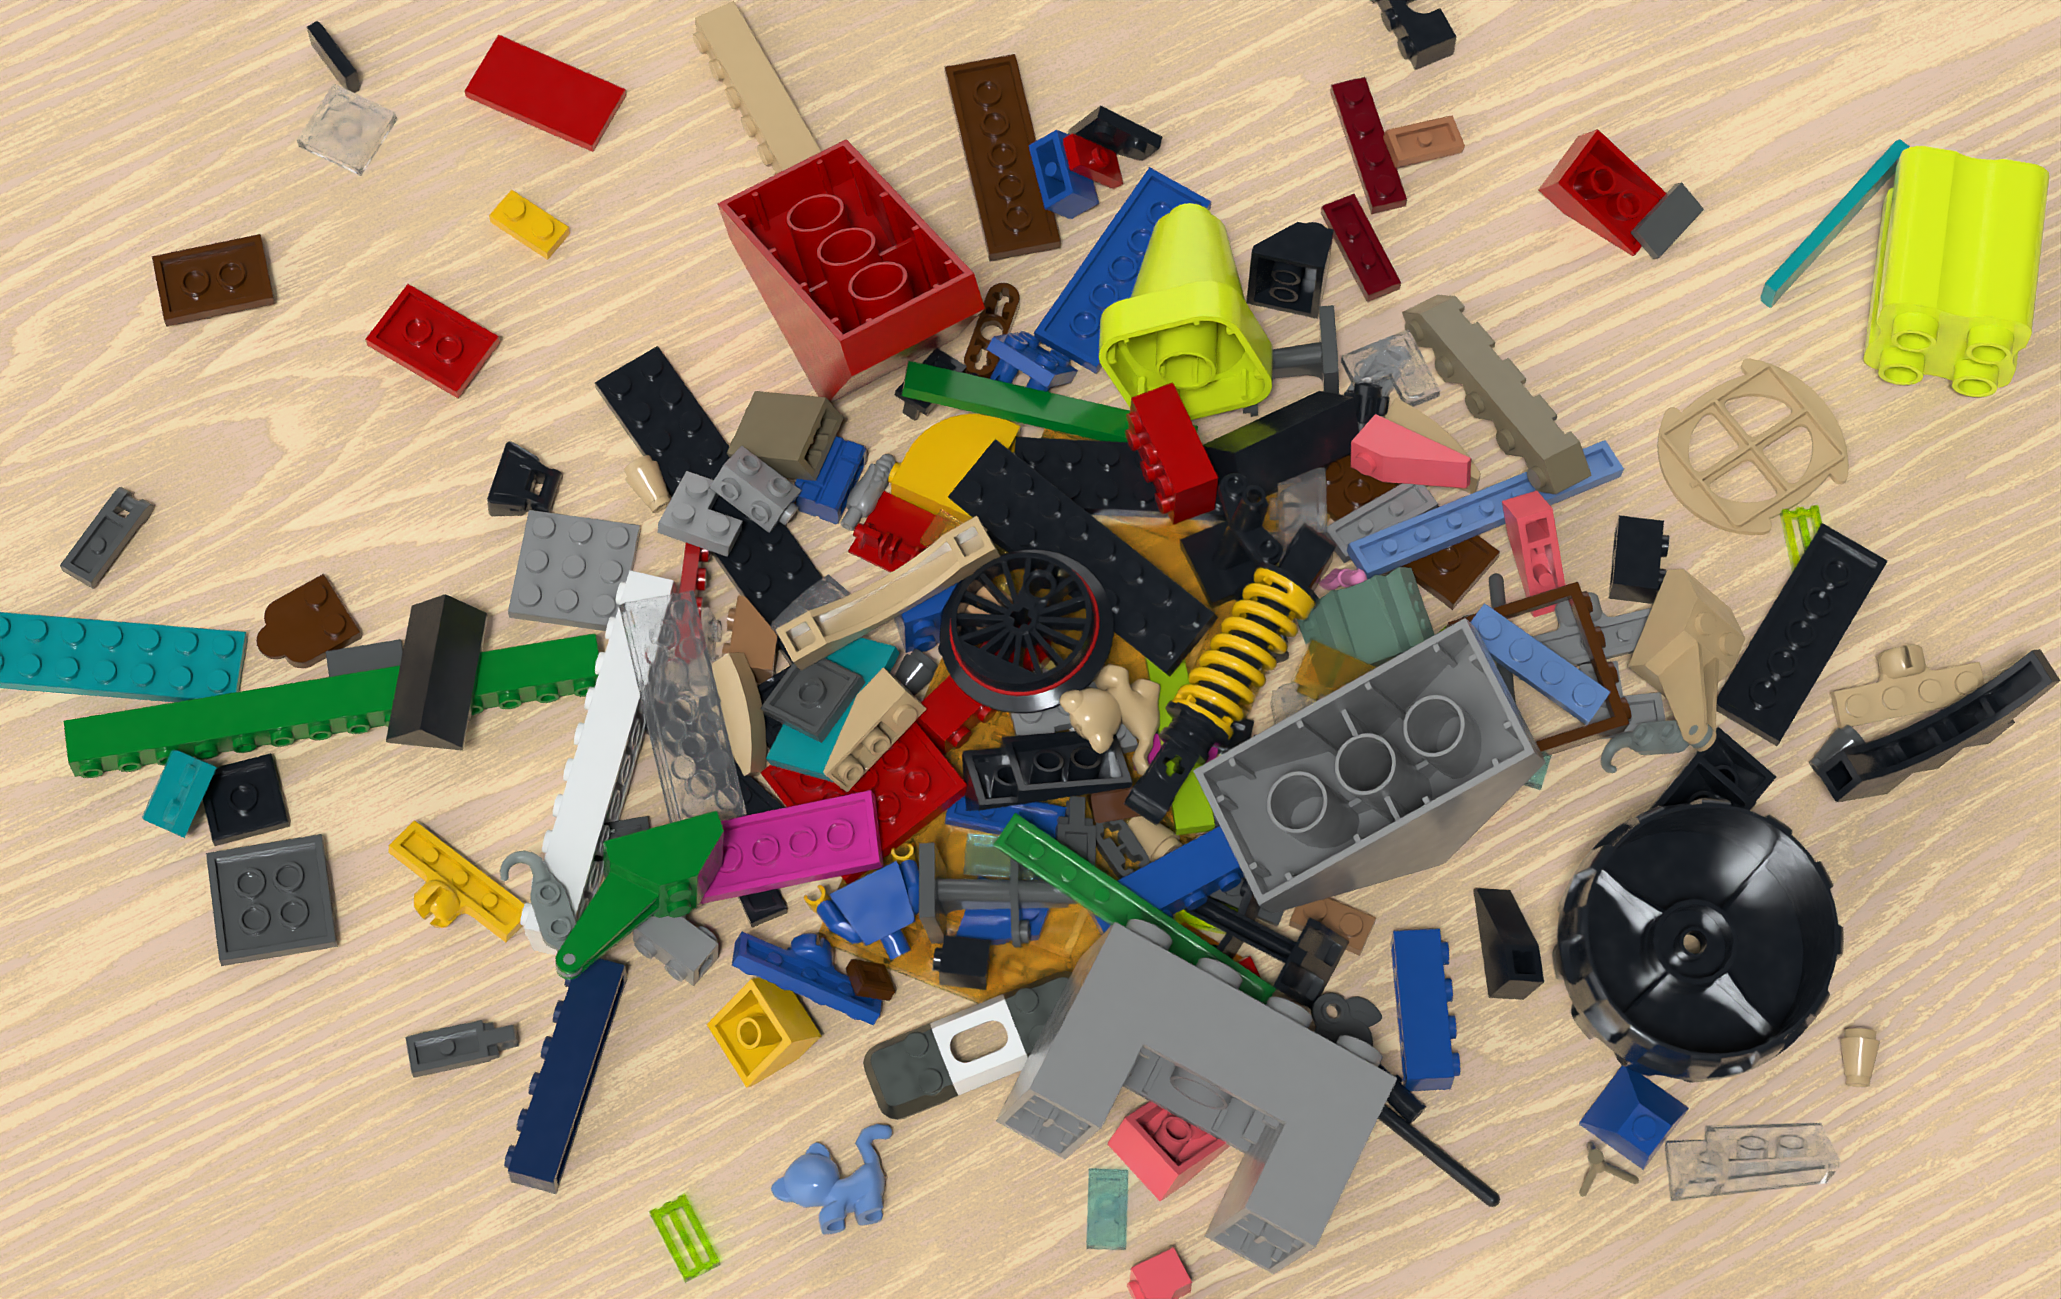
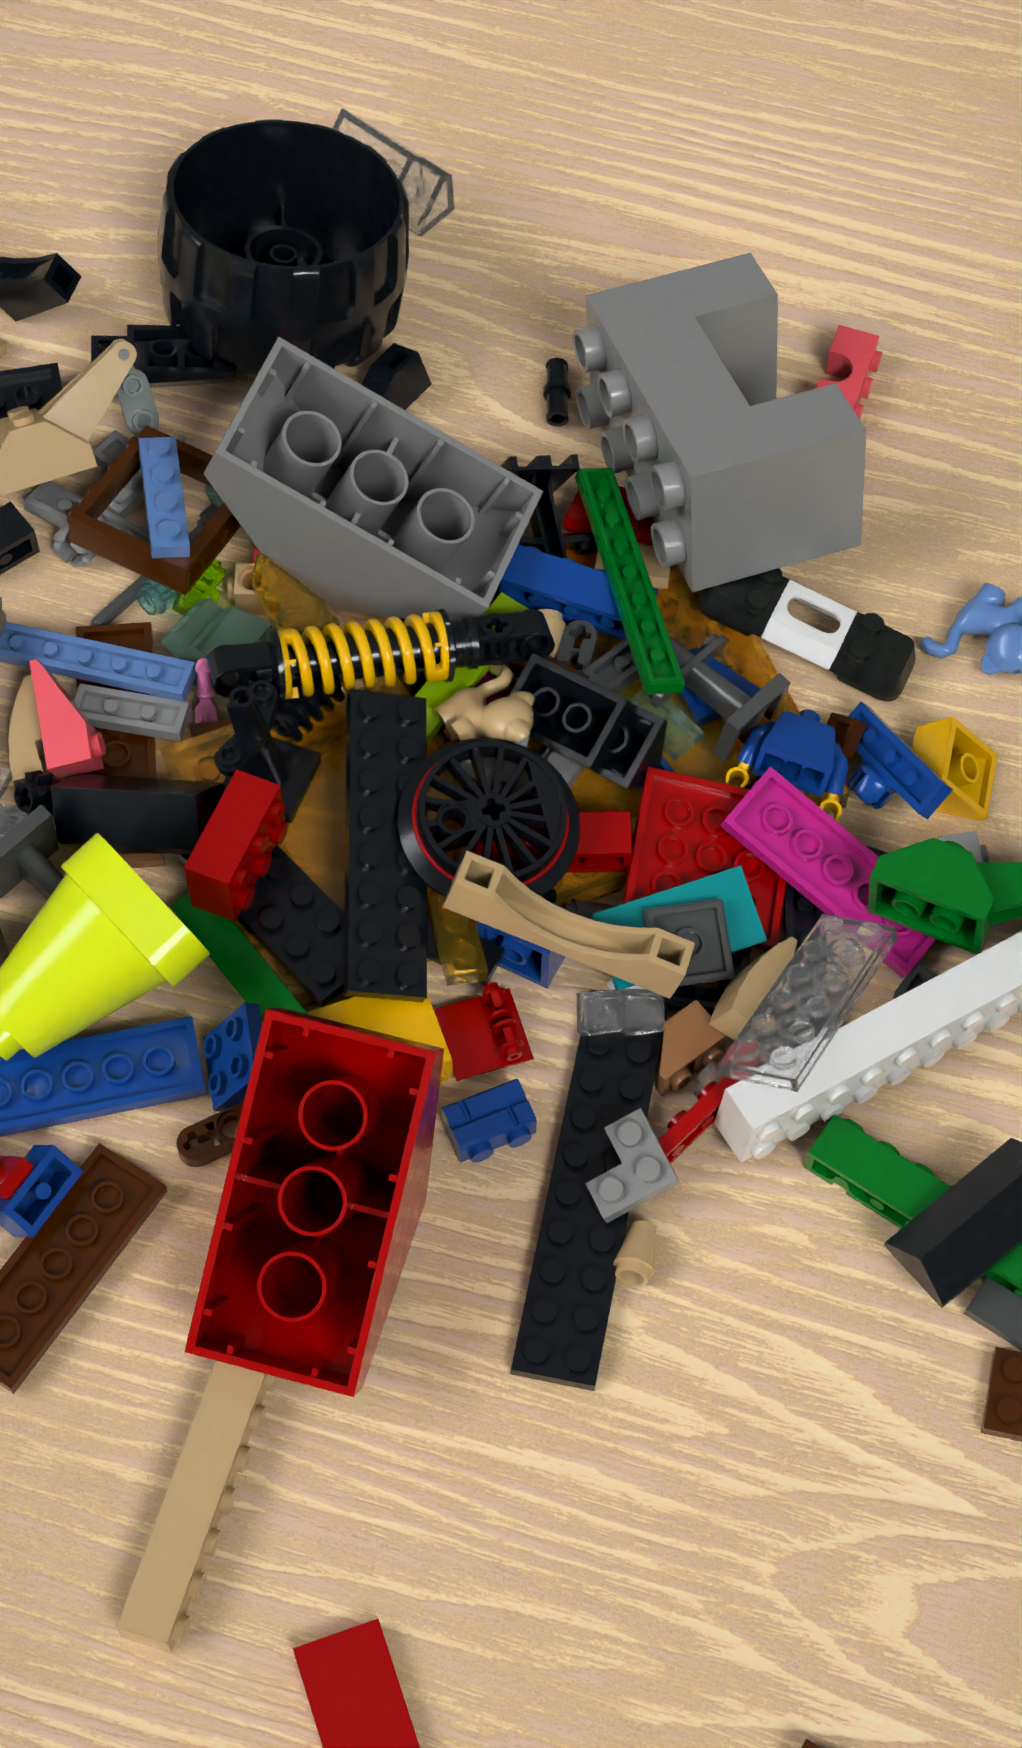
camera: 135 degrees left, 5 degrees down
(432, 341) = (697, 1560): red plate -> none
(515, 481) = (746, 1356): black piece -> none
(529, 224) = (505, 1599): yellow plate -> none
(572, 569) = (766, 1242): light grey plate -> none
(756, 490) = (566, 1146): light grey brick -> none
(788, 432) = (495, 1176): dark tan brick -> none
(867, 492) = (471, 1084): light grey piece -> none
(873, 725) = (665, 867): tan slope -> none
(963, 962) = (765, 661): black brick -> none
(1299, 502) = (190, 734): clear slope -> none
(1352, 1018) = (542, 441): dark grey plate -> none
(1423, 1010) = (493, 401): blue brick -> none
(1439, 1157) = (575, 371): black piece -> none
(1534, 545) = (52, 595): coral slope -> none
(1599, 1165) = (484, 233): dark tan plant -> none
(1633, 1116) = (431, 252): blue slope -> none
(1839, 740) = (28, 330): dark grey cone -> none

